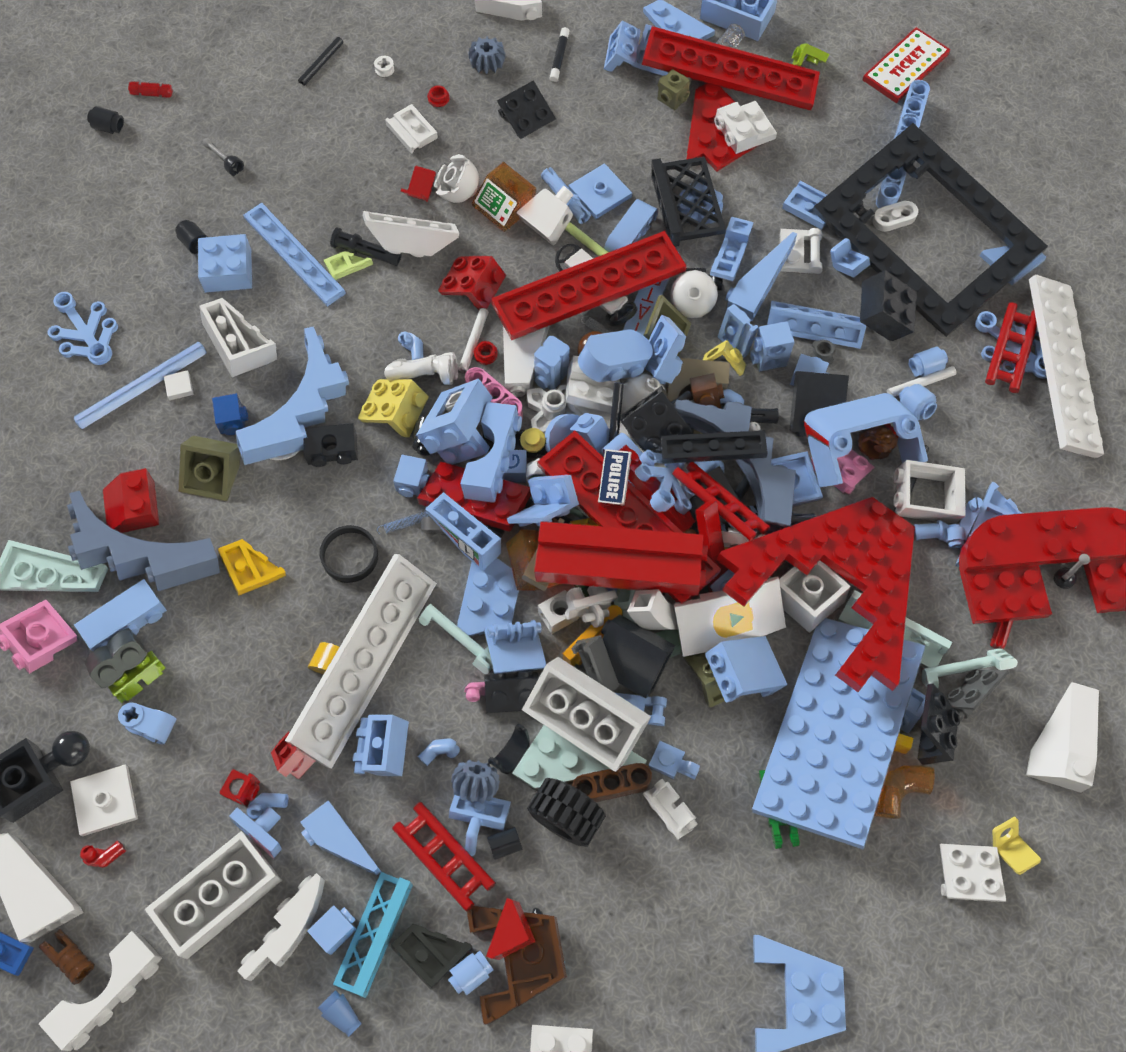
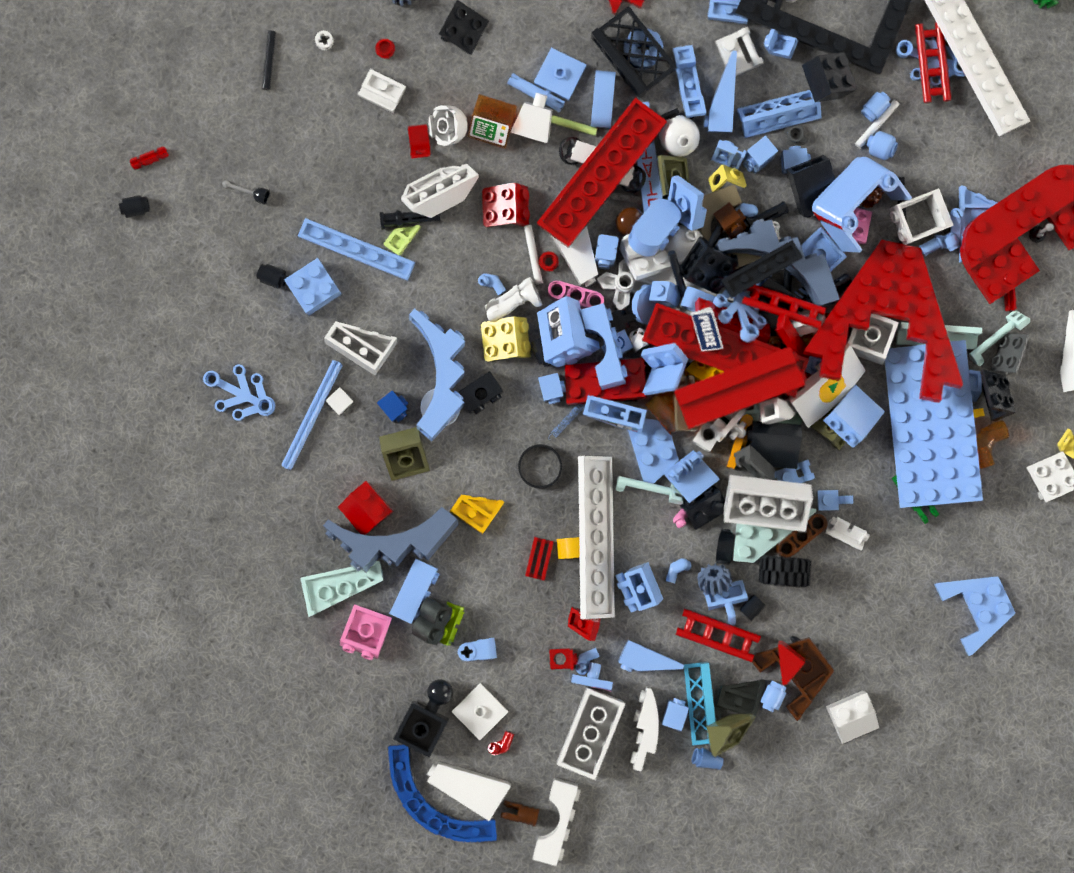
camera: 20 degrees left, 20 degrees up
(278, 649) = (543, 542): none -> red tile
(383, 988) = (728, 732): none -> olive slope
(532, 440) = (624, 319): light yellow plate -> none

